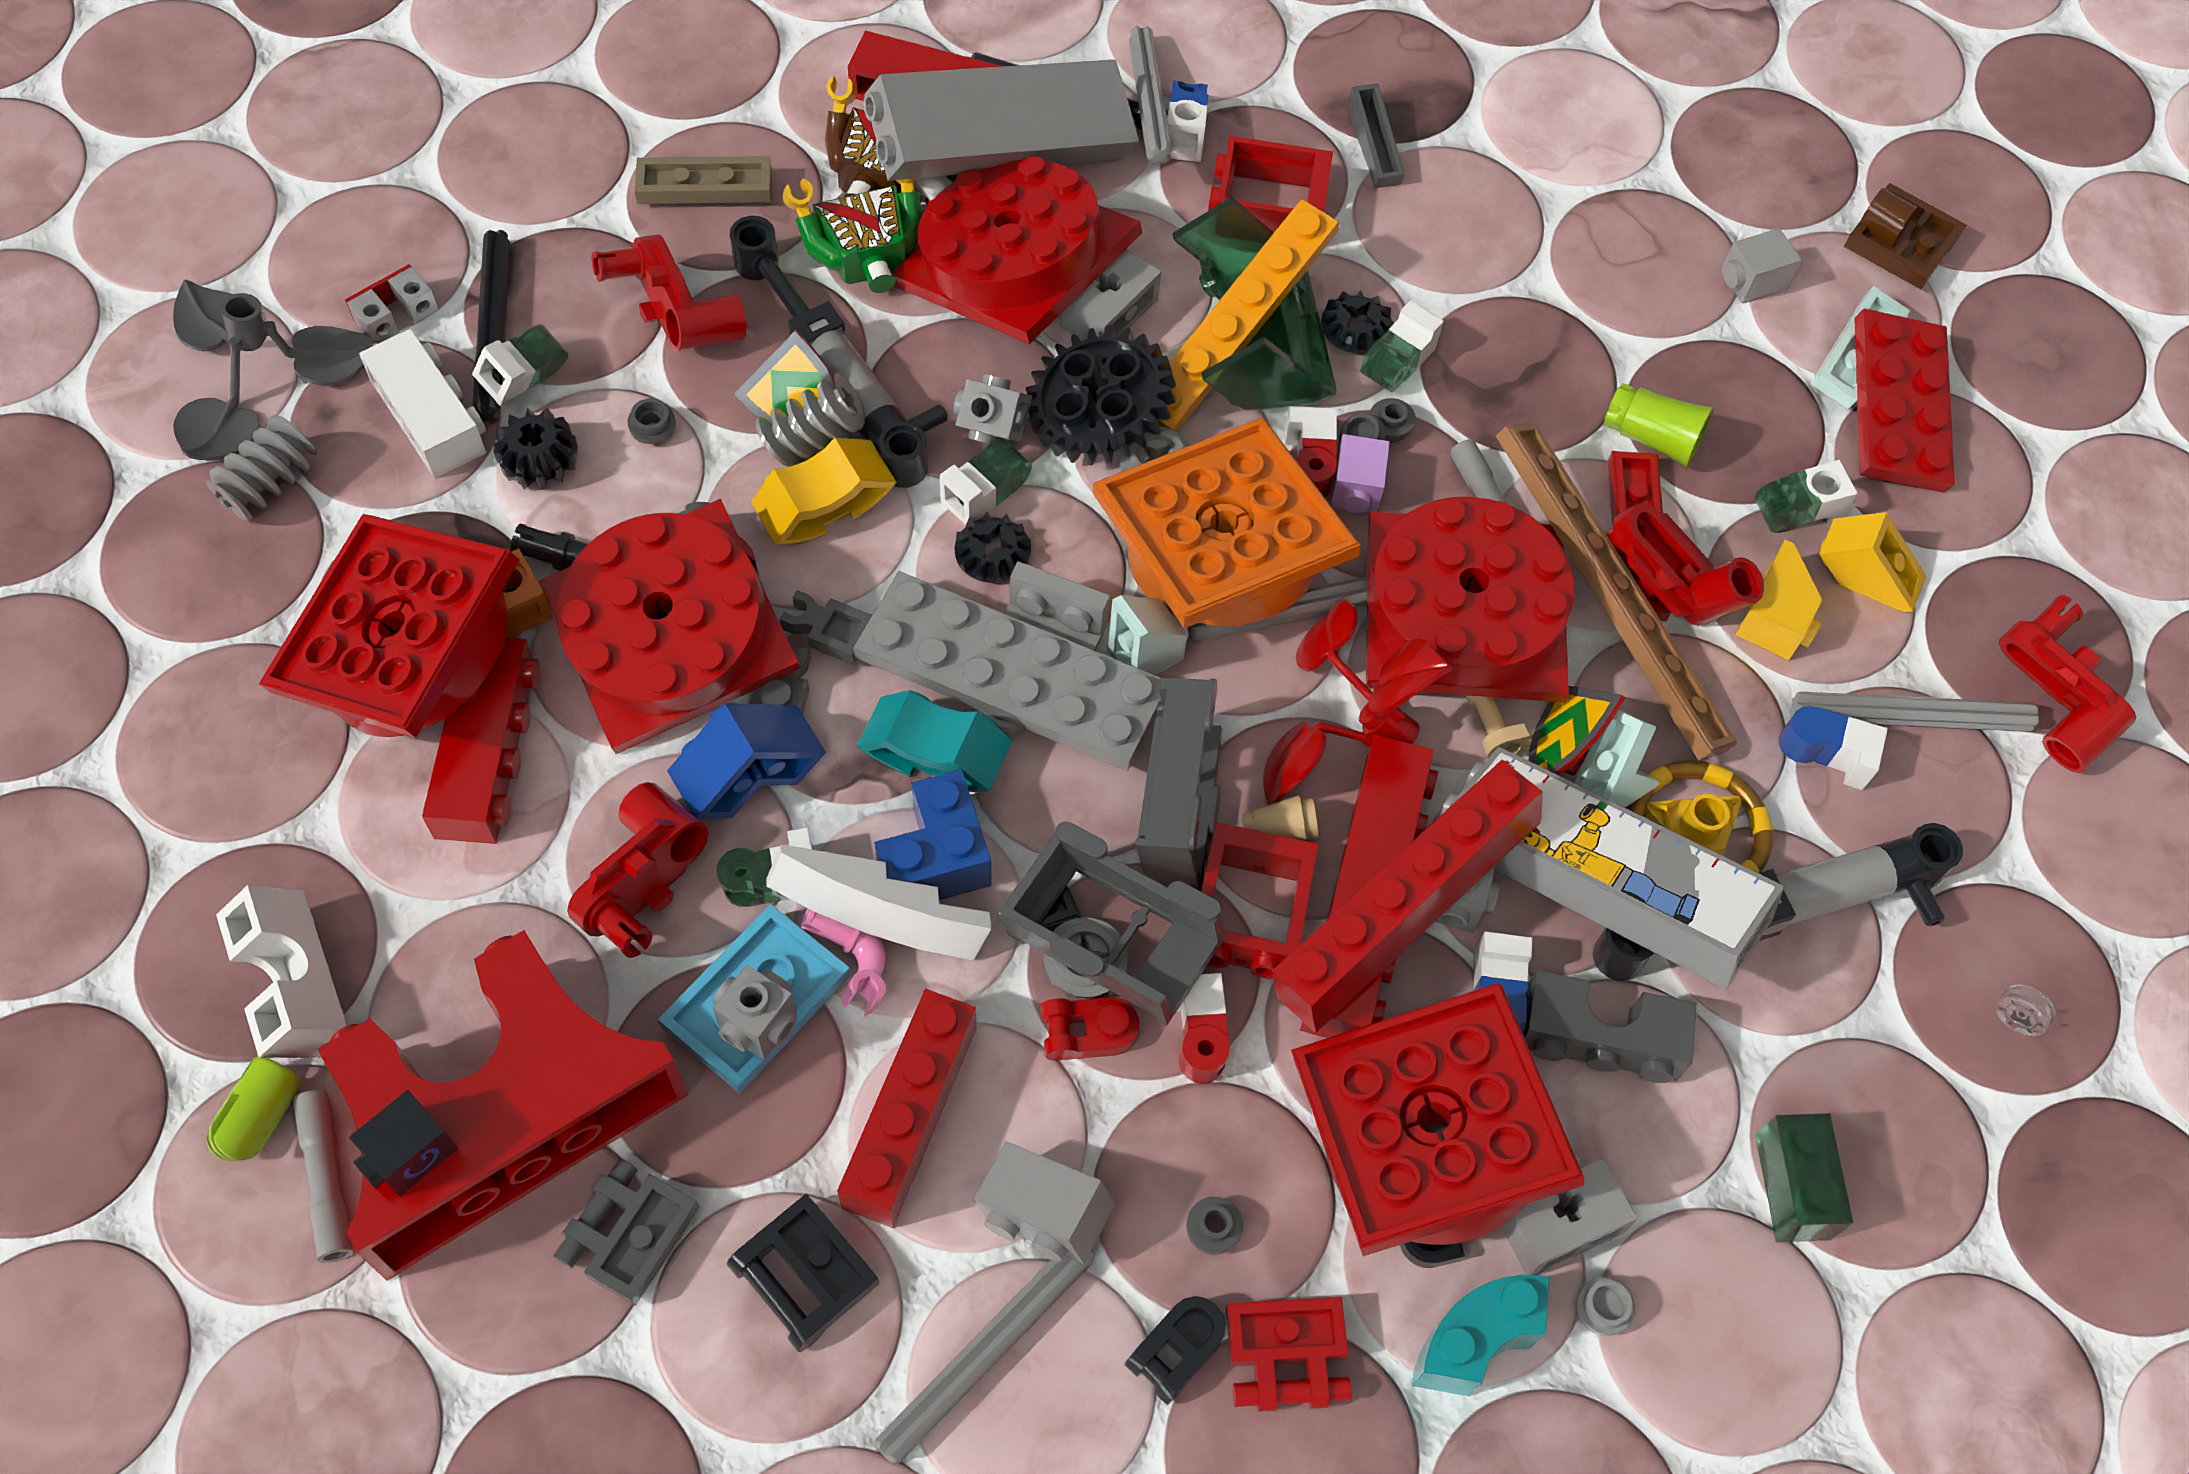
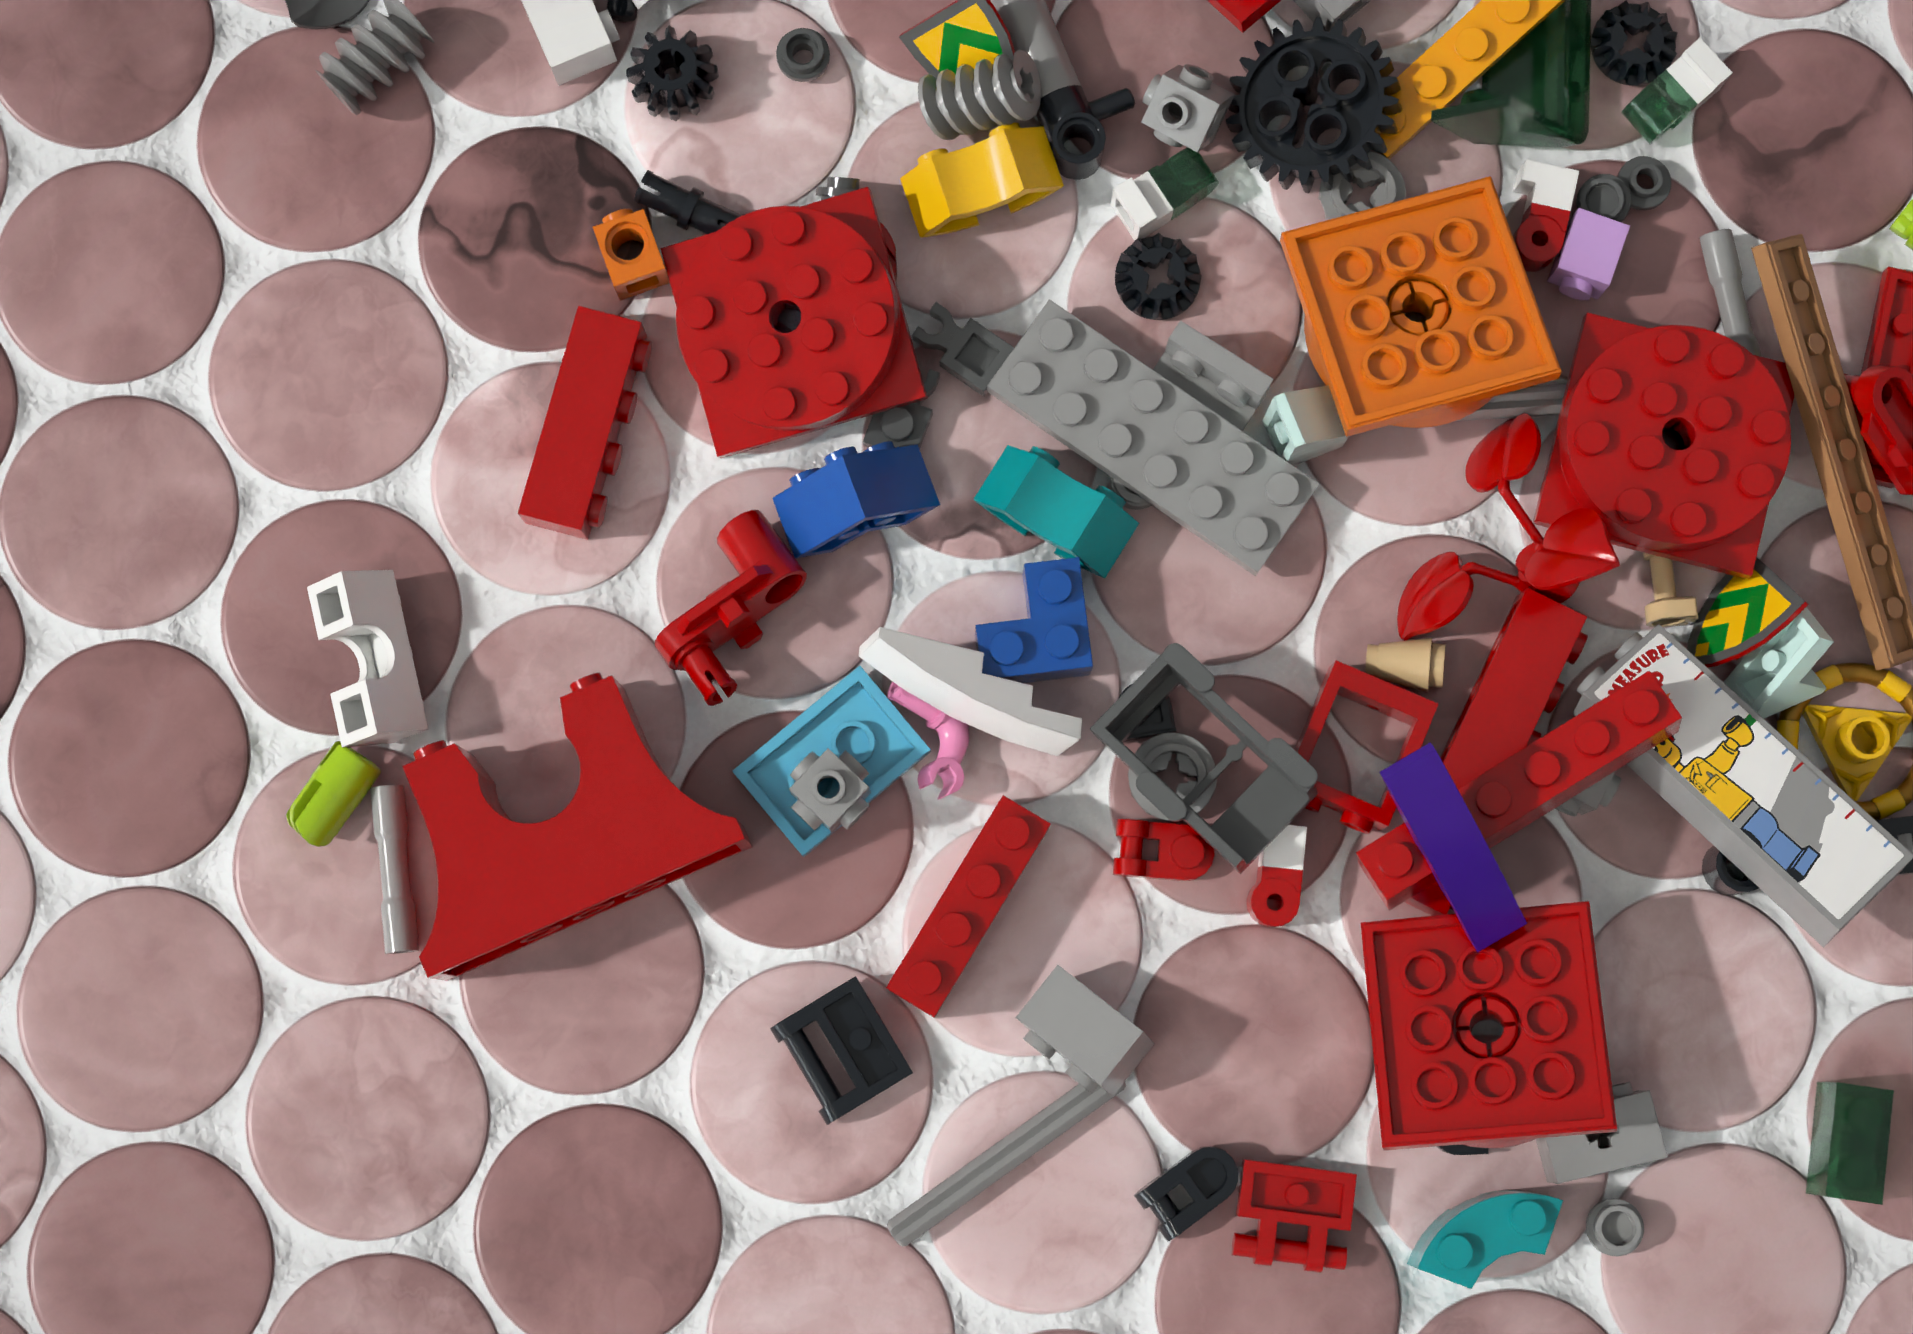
camera: 15 degrees right, 20 degrees up
(397, 629) = (459, 291): red piece -> none
(400, 1144) = (477, 887): black brick -> none
(639, 1240) = (690, 990): dark grey plate -> none
(744, 872) = (843, 630): clear green leg -> none
(1180, 783) = (1307, 613): dark grey piece -> none
(1209, 1241) = (1230, 1073): dark grey plate -> none
(1363, 937) = (1453, 846): none -> dark purple slope
(1505, 960) = (1599, 877): white leg -> none
(1653, 1043) = (1646, 934): dark grey arch -> none

